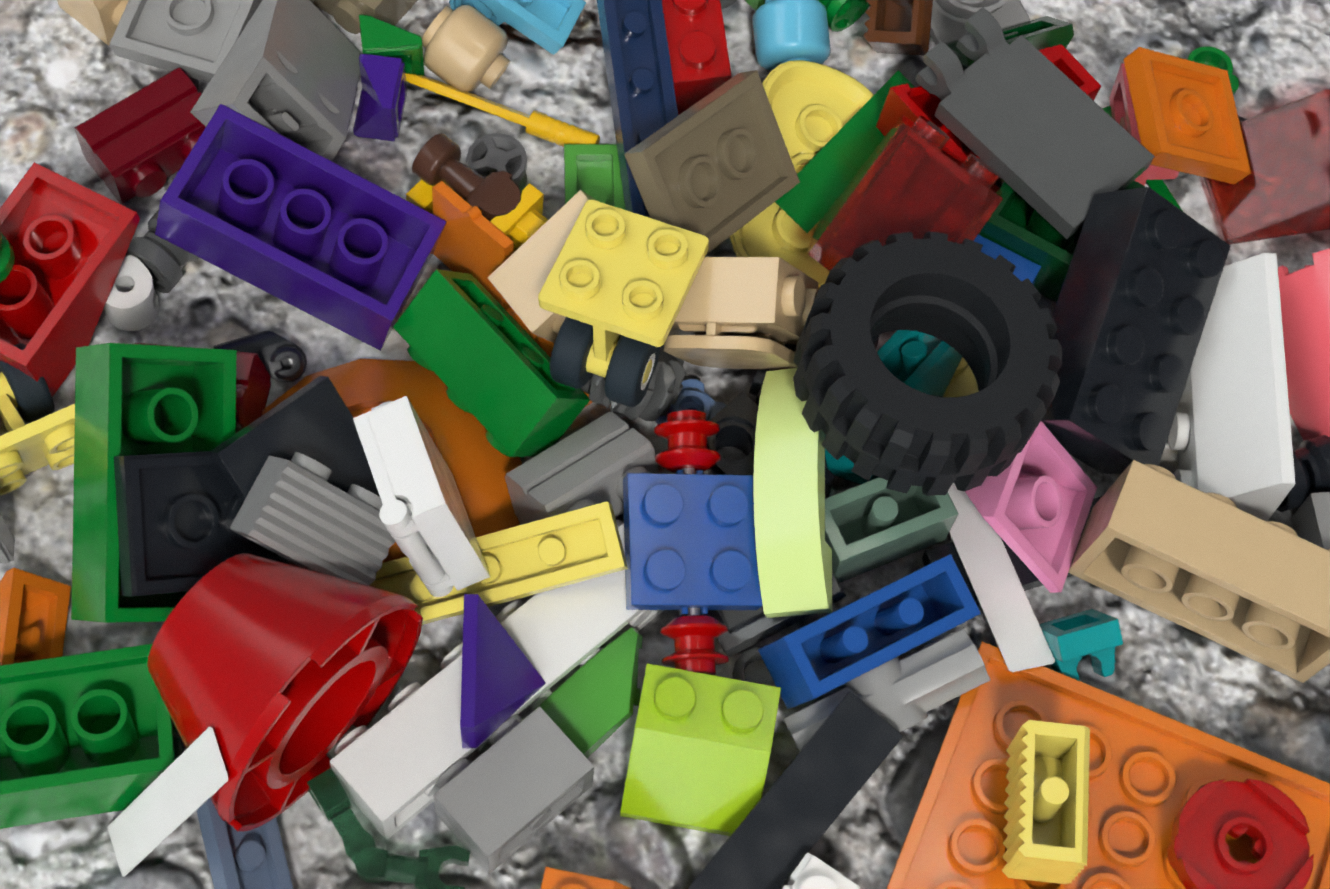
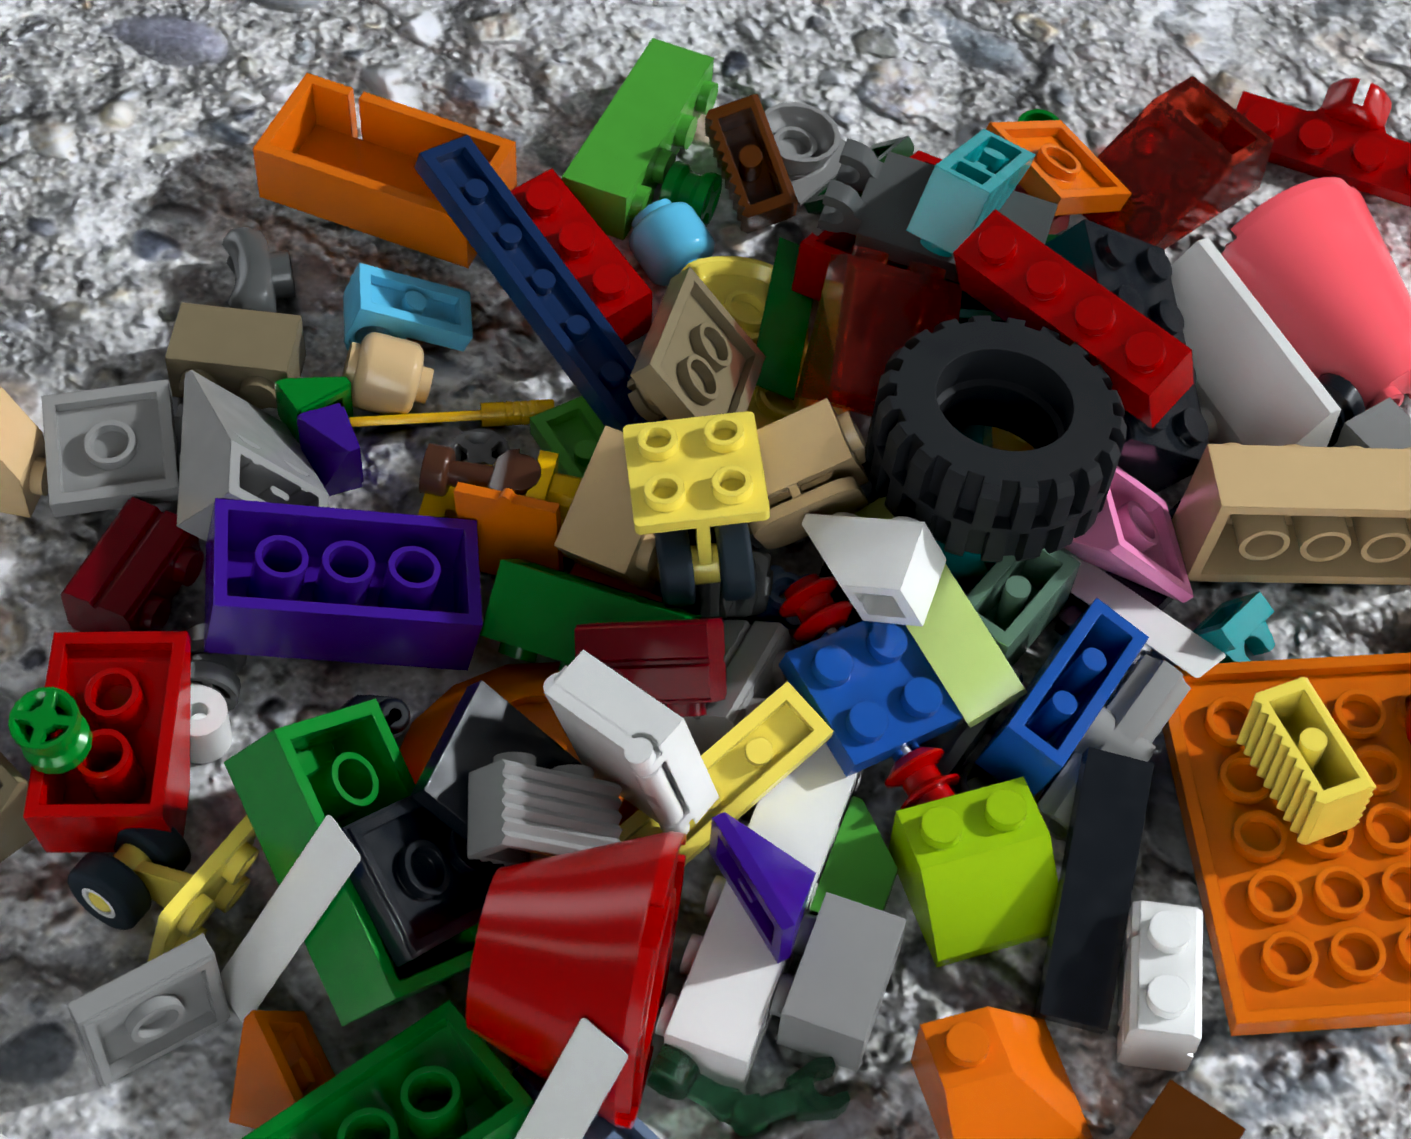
camera: 25 degrees left, 10 degrees down
(69, 506) = (288, 917): none -> white sticker
(502, 427) = (667, 659): none -> dark red brick
(752, 434) = (880, 564): none -> white slope
(1063, 108) = (966, 190): none -> teal slope
(1073, 281) = (1033, 283): none -> red brick

